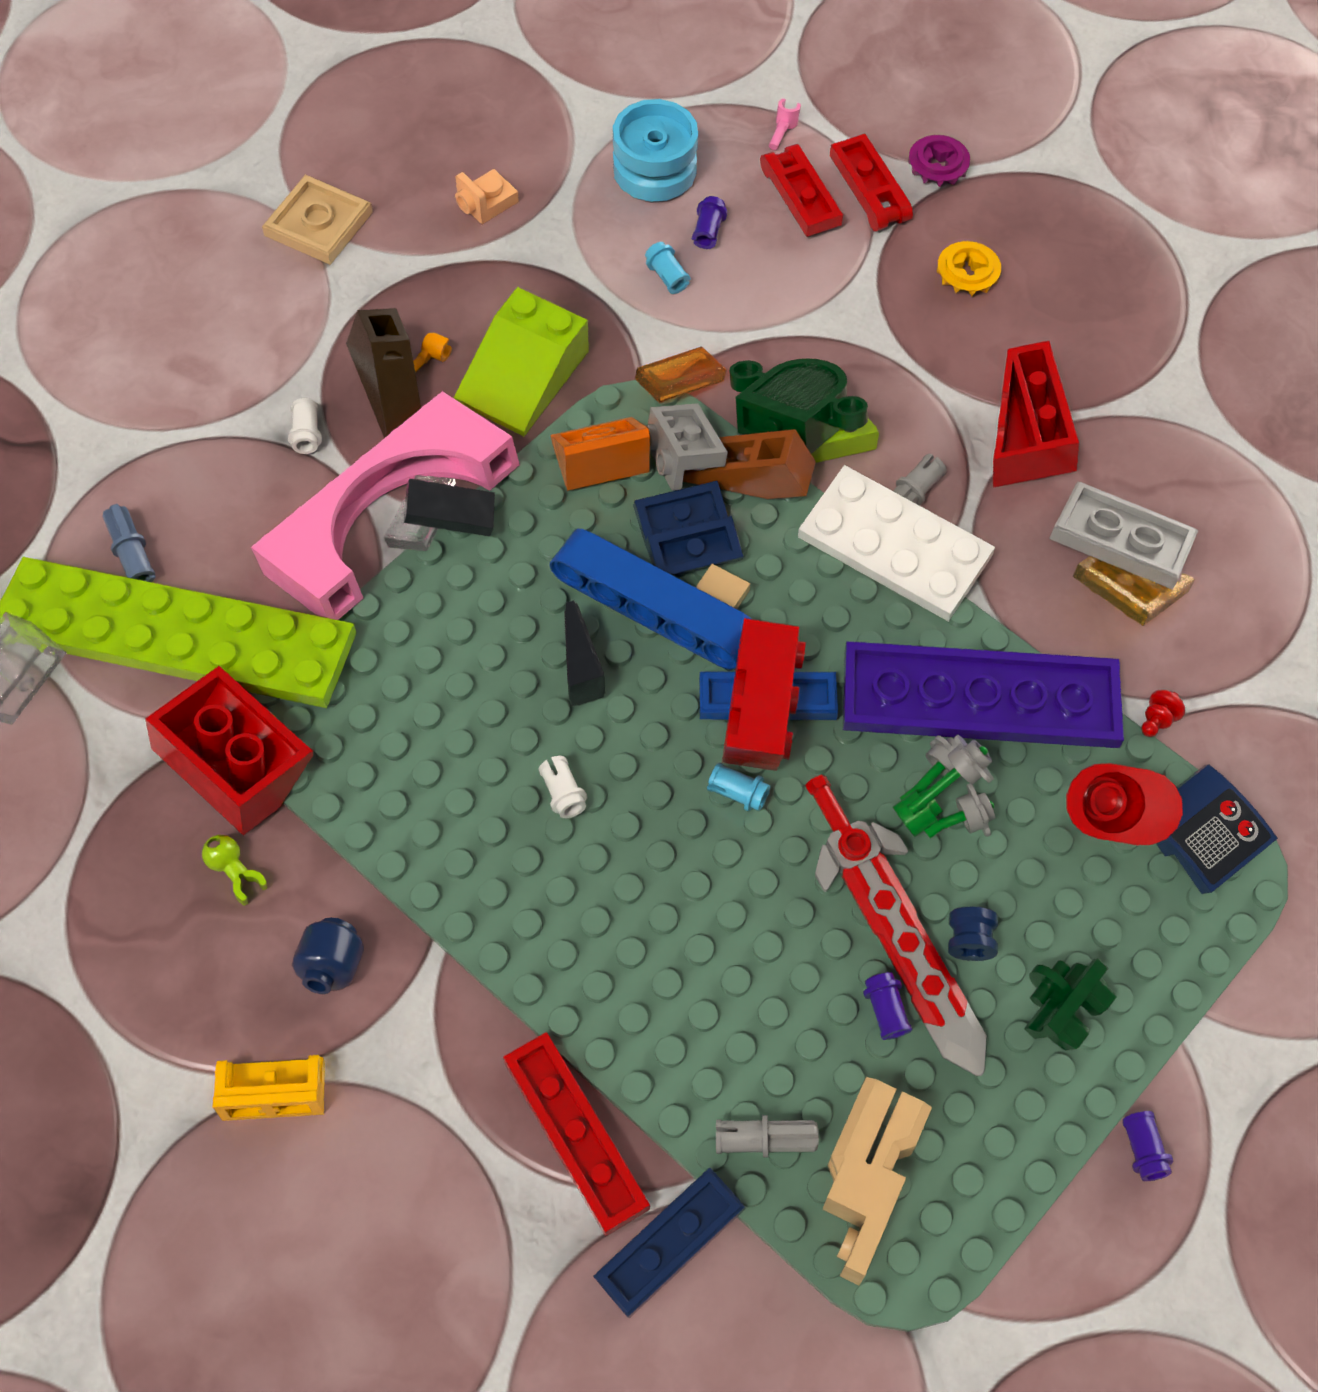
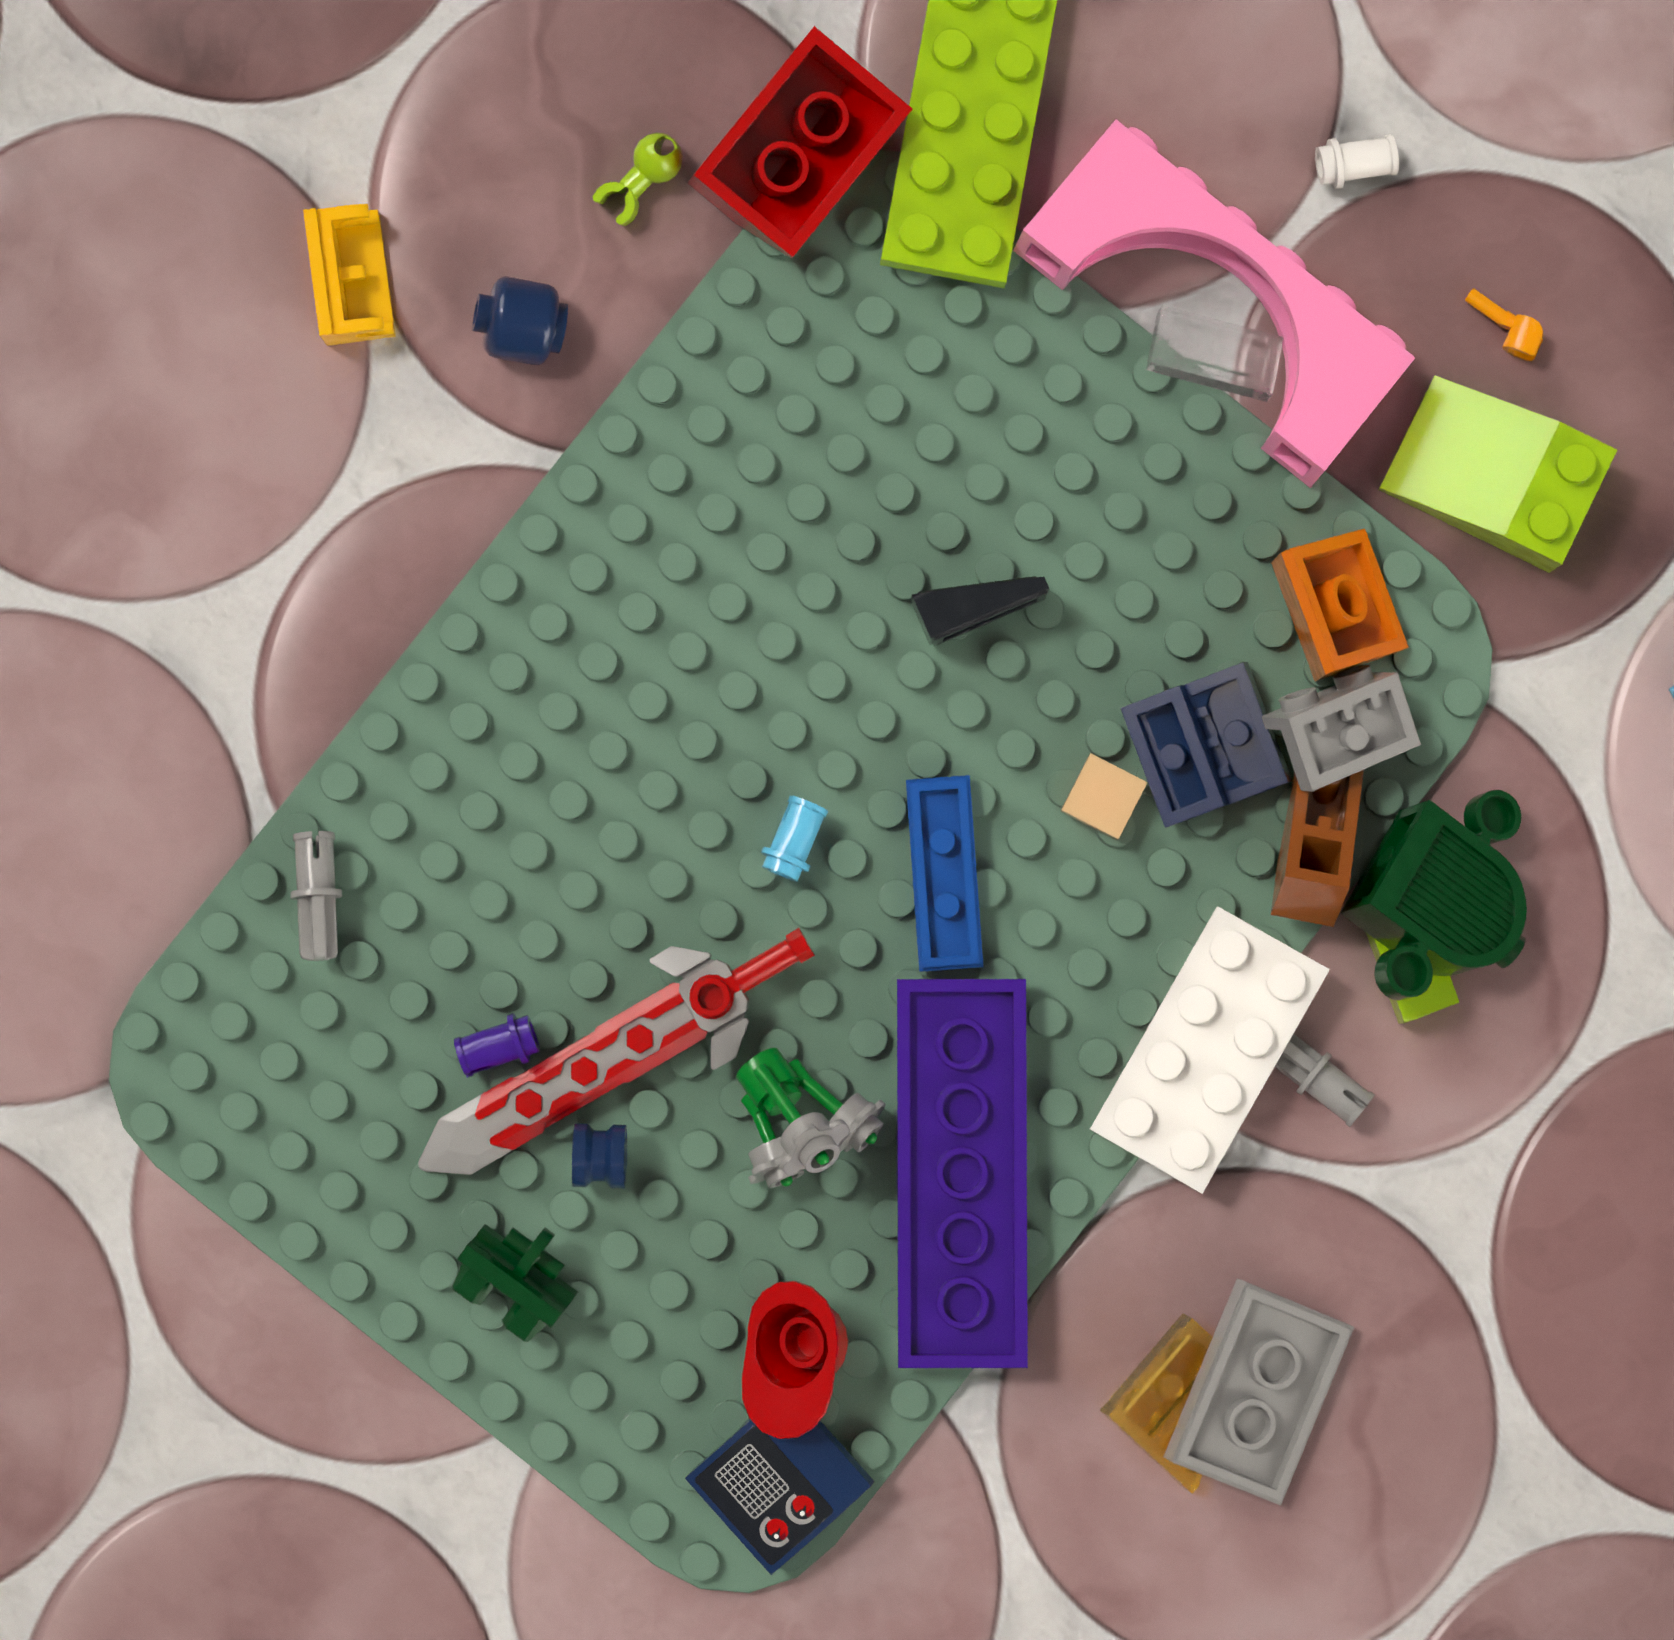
camera: 85 degrees right, 25 degrees up
(385, 366) = (1454, 269): dark brown slope -> none
(449, 507) = (1209, 393): black tile -> none
(566, 796) = (775, 600): white pin -> none
(576, 1134) = (315, 660): red plate -> none
(650, 597) = (1080, 701): blue beam -> none
(669, 1242) = (189, 786): dark blue tile -> none
(680, 374) = (1497, 716): clear orange tile -> none
(763, 695) = (911, 861): red wedge -> none
(864, 1191) = (253, 1027): tan plate -> none
(1034, 419) = (1448, 1257): red wedge -> none
(1147, 1146) = (345, 1377): dark purple pin -> none
(1162, 711) = (957, 1426): red hair -> none

